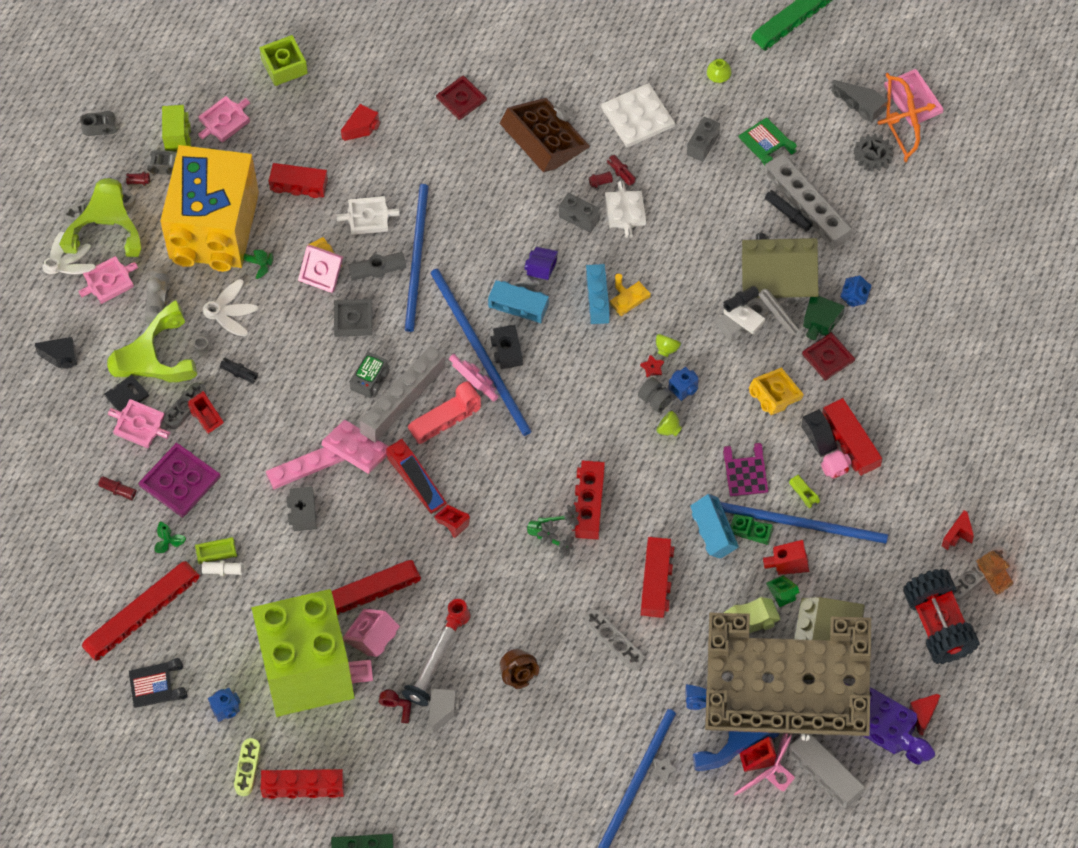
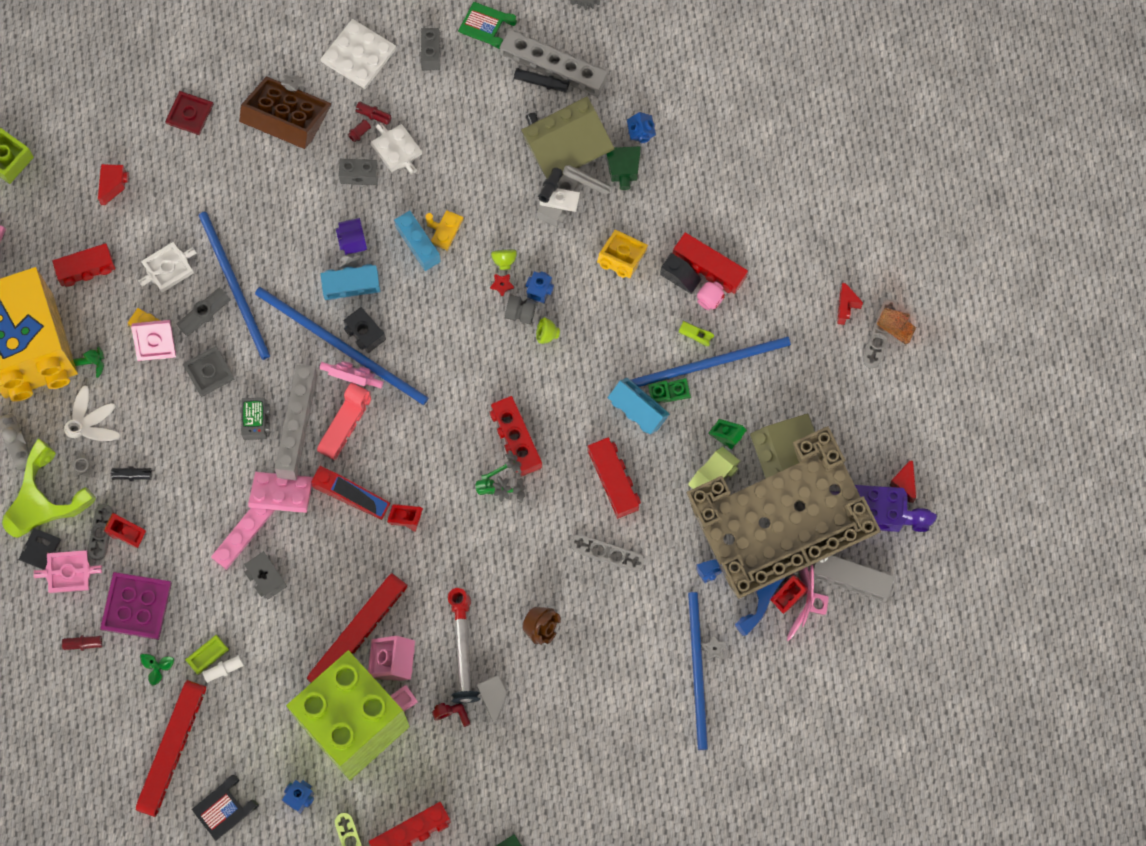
camera: 30 degrees left, 10 degrees up
(745, 475) = (637, 343): magenta flag -> none
(788, 558) = (723, 397): red torso -> none
(828, 356) = (648, 198): dark red tile -> none
(935, 602) = (876, 389): black plate -> none

